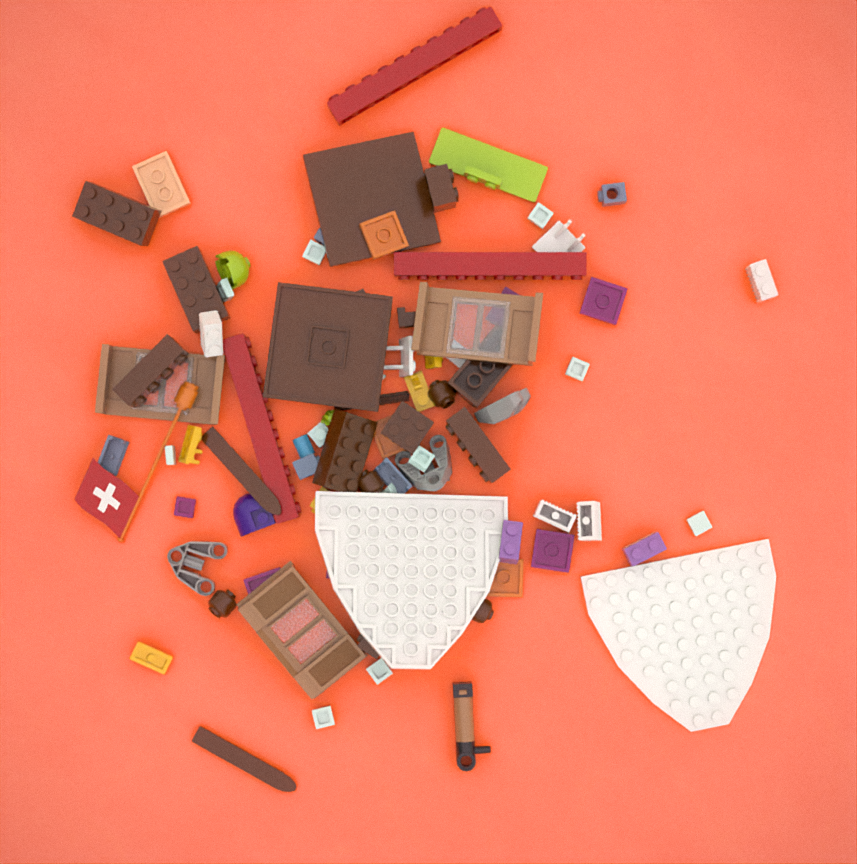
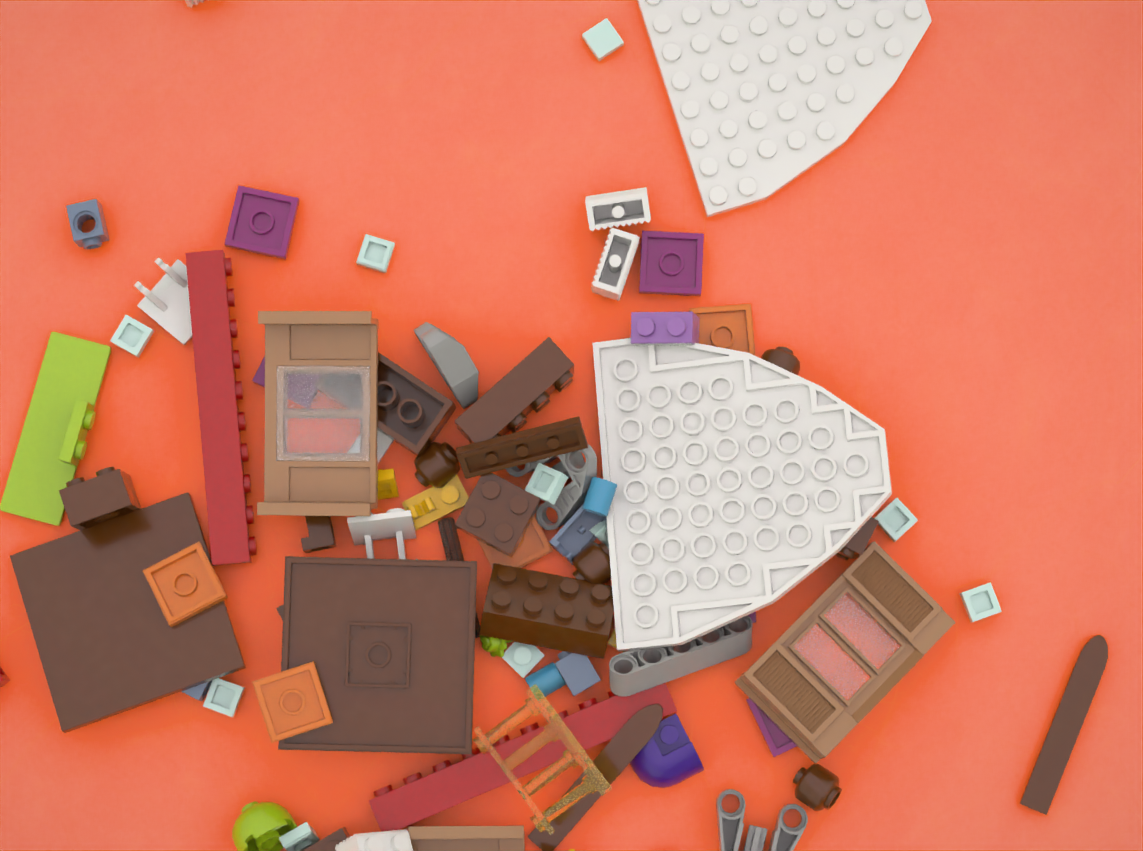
camera: 95 degrees left, 5 degrees down
(255, 458) = (573, 756): none -> clear yellow fence
(303, 510) = (647, 668): none -> light grey beam
(304, 292) = (292, 702): none -> orange tile
(410, 490) = (599, 496): none -> dark azure piece
(443, 446) = (522, 447): none -> reddish brown tile
(465, 725) = (967, 374): piece -> none
(644, 548) = (652, 119): medium lavender brick -> none

